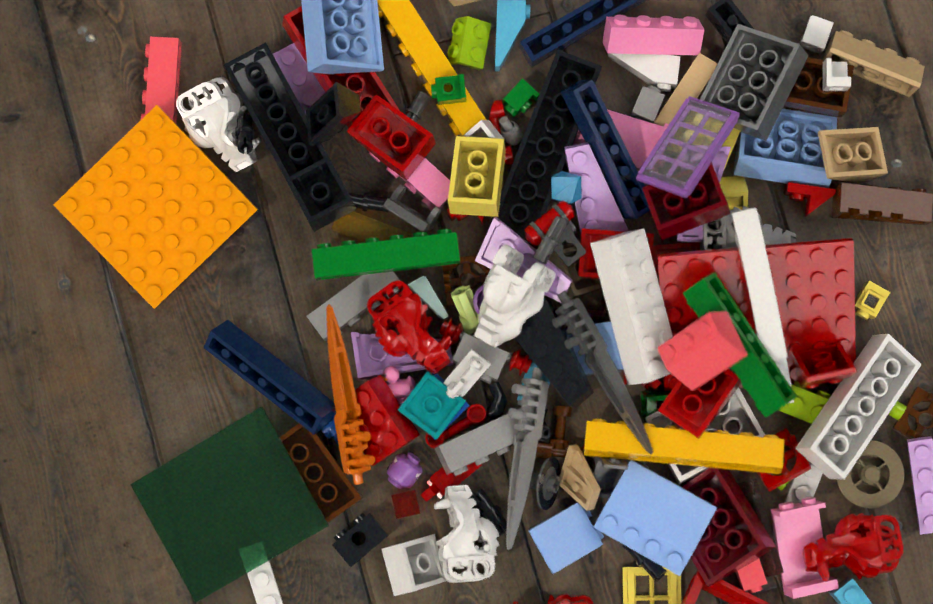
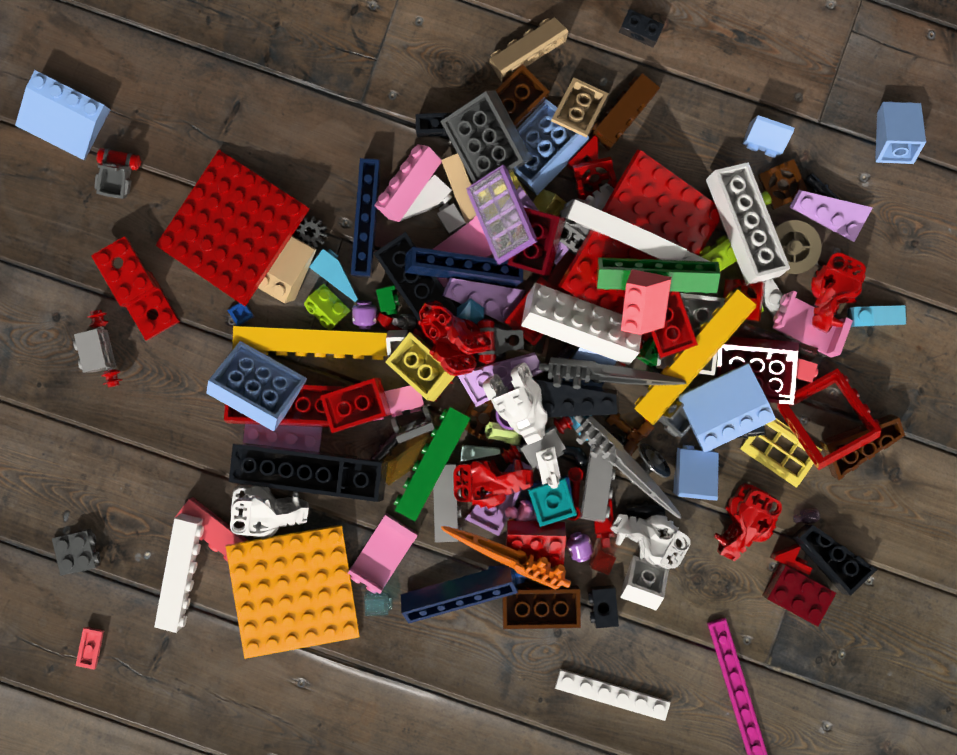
camera: 55 degrees left, 5 degrees up
(96, 79) = (178, 572): none -> white brick
(201, 303) = (377, 604): none -> clear light blue brick
(229, 504) = (523, 676): clear green piece -> none
(244, 133) = (285, 500): black pin -> none
(256, 273) = (382, 554): none -> bright pink panel
(331, 113) = (313, 435): black slope -> none
(417, 106) = (346, 373): dark grey axle -> none
(457, 94) = (357, 341): green brick -> none
(488, 85) = (364, 314): none -> medium lavender head
(529, 184) = (452, 338): none -> red animal
(550, 240) = (499, 349): dark grey axle -> none
(578, 478) = (666, 439): tan wing -> none
(792, 198) = (580, 169): none -> red piece
(816, 34) = (482, 73): white panel -> none
(822, 365) = (706, 228): red slope -> none
(835, 76) = (521, 81): white panel -> none
(870, 300) = (682, 165): light yellow window -> none

